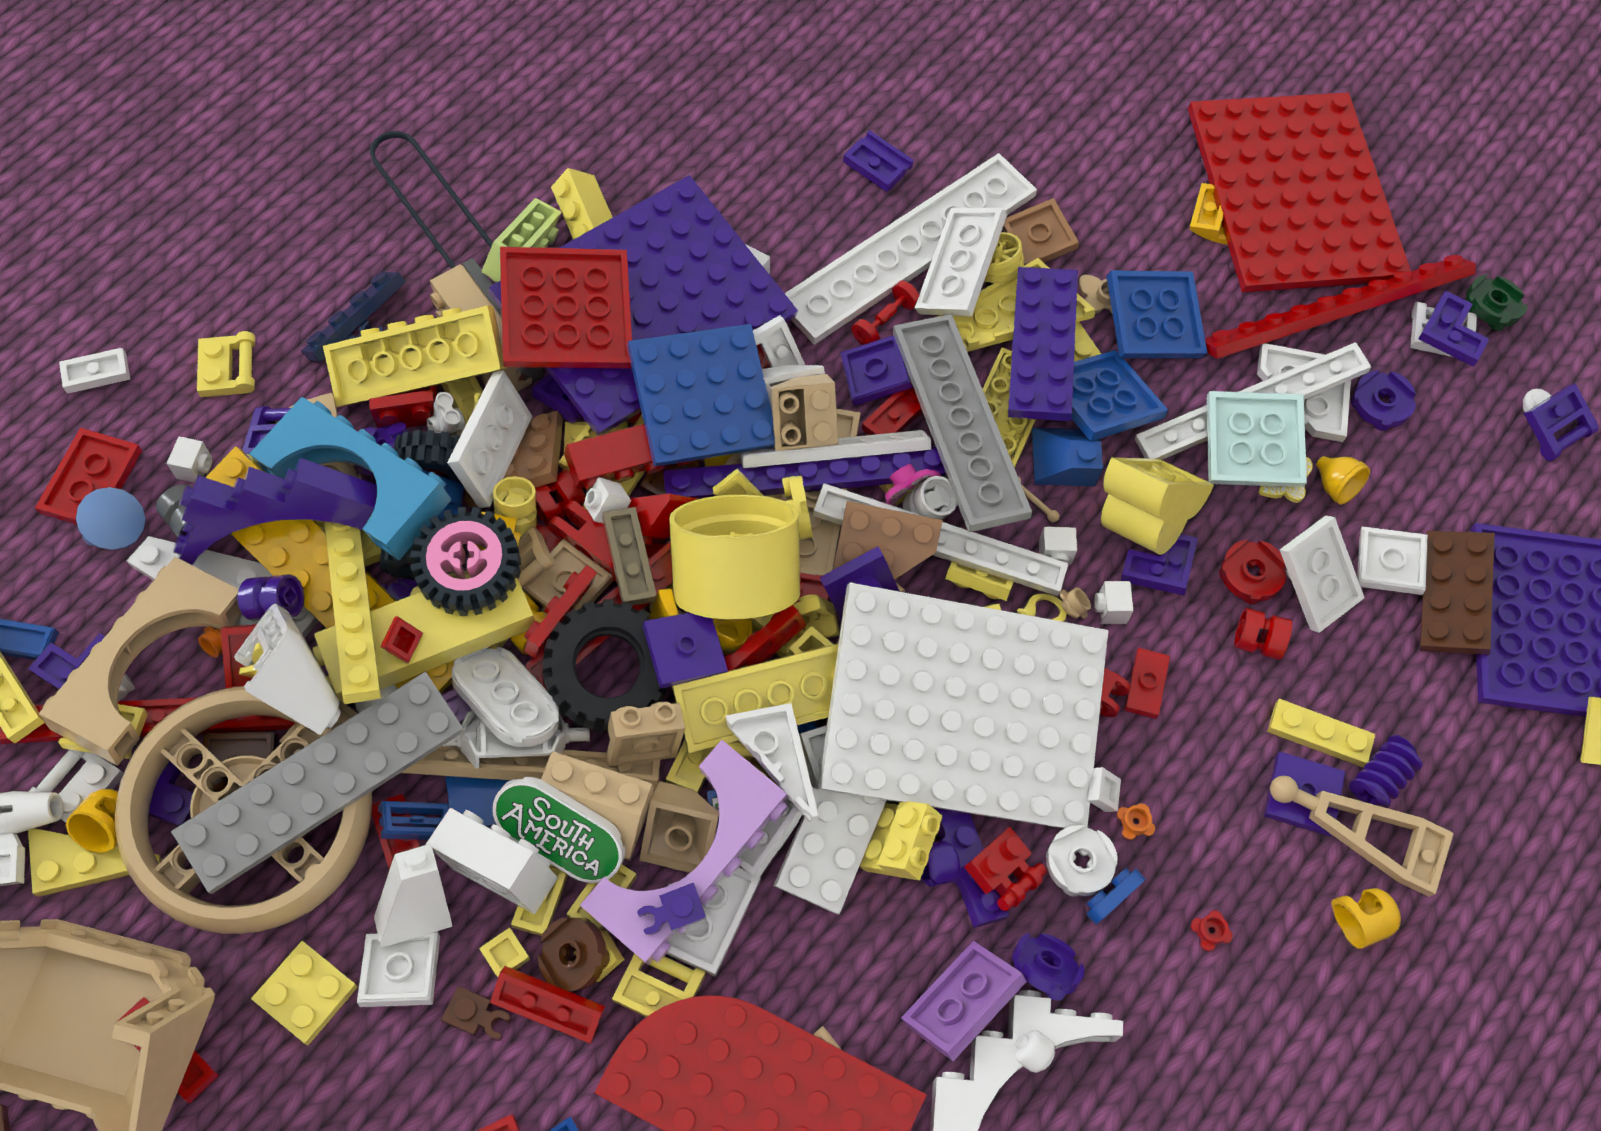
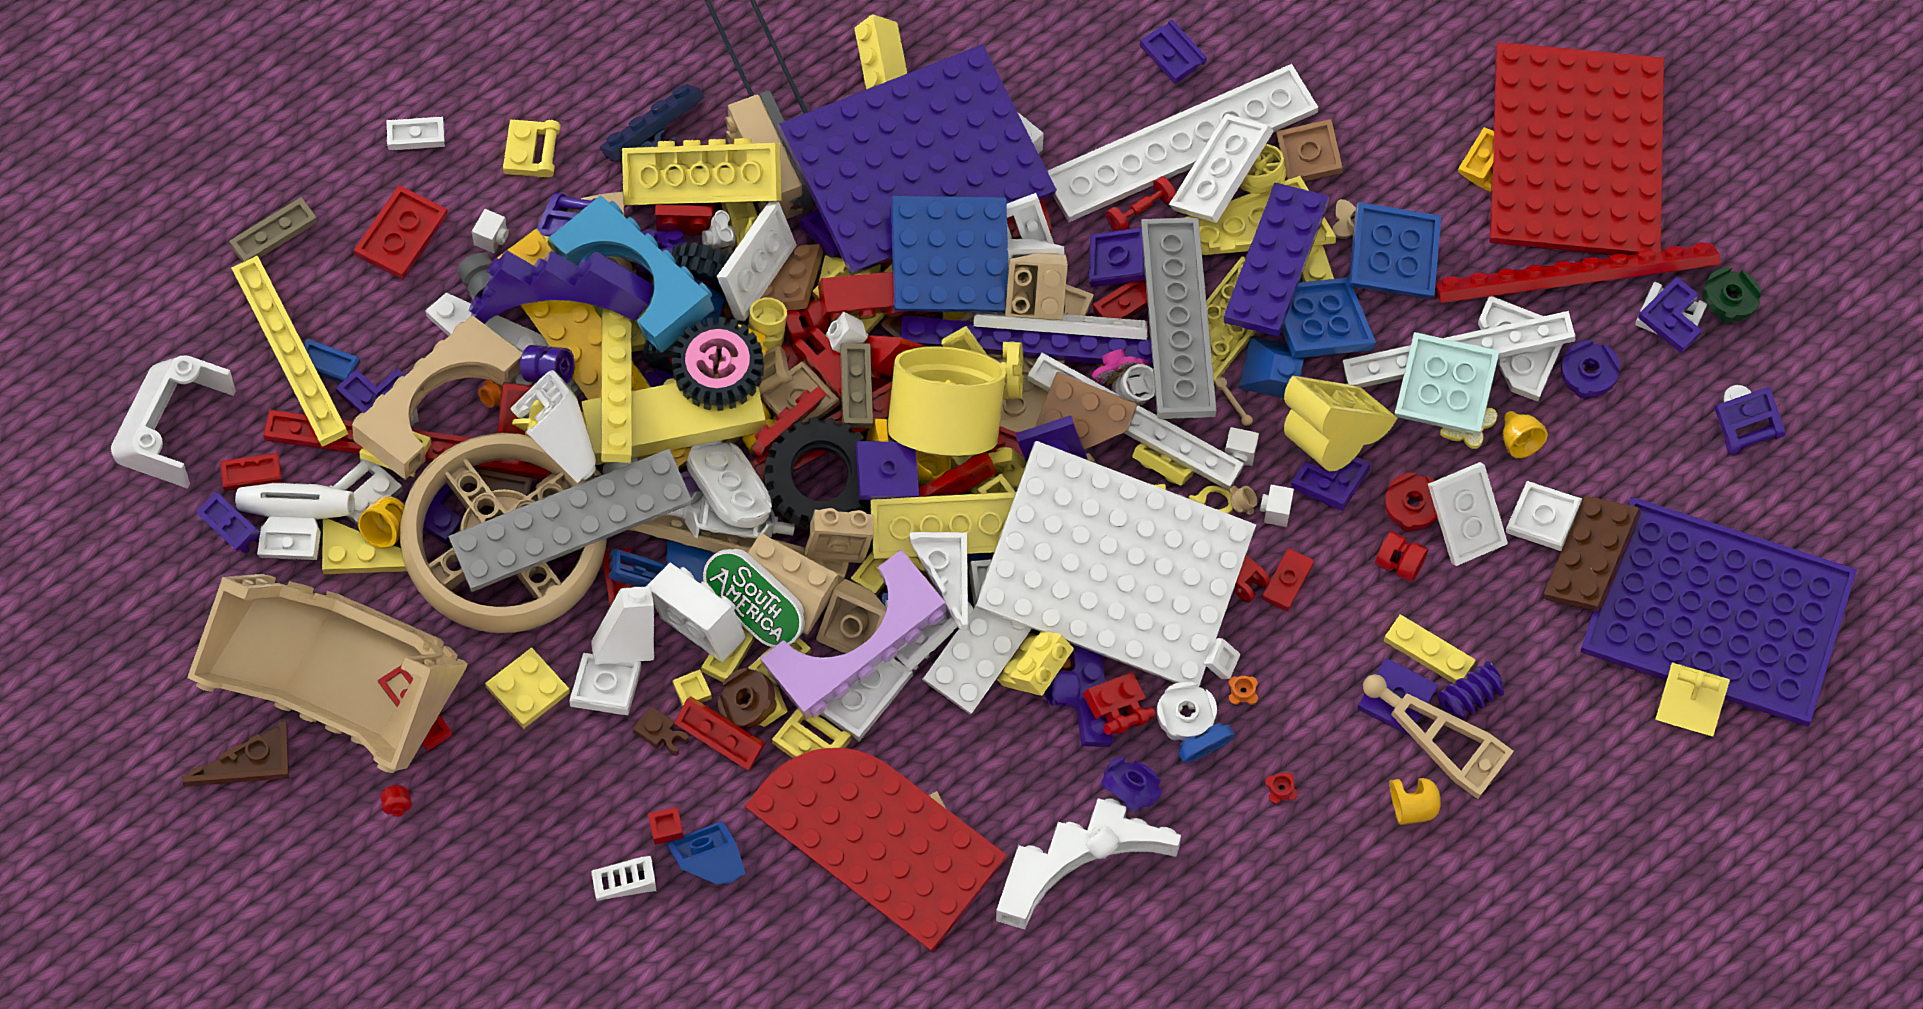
camera: 15 degrees right, 0 degrees up
(110, 519) = (417, 271): medium blue dish -> none
(401, 639) = (653, 419): red slope -> none
(531, 228) = (818, 80): yellowish green brick -> none
(565, 307) = (843, 154): red plate -> none
(678, 908) = (839, 674): dark purple plate -> none
(963, 1000) = (1056, 795): medium lavender plate -> none

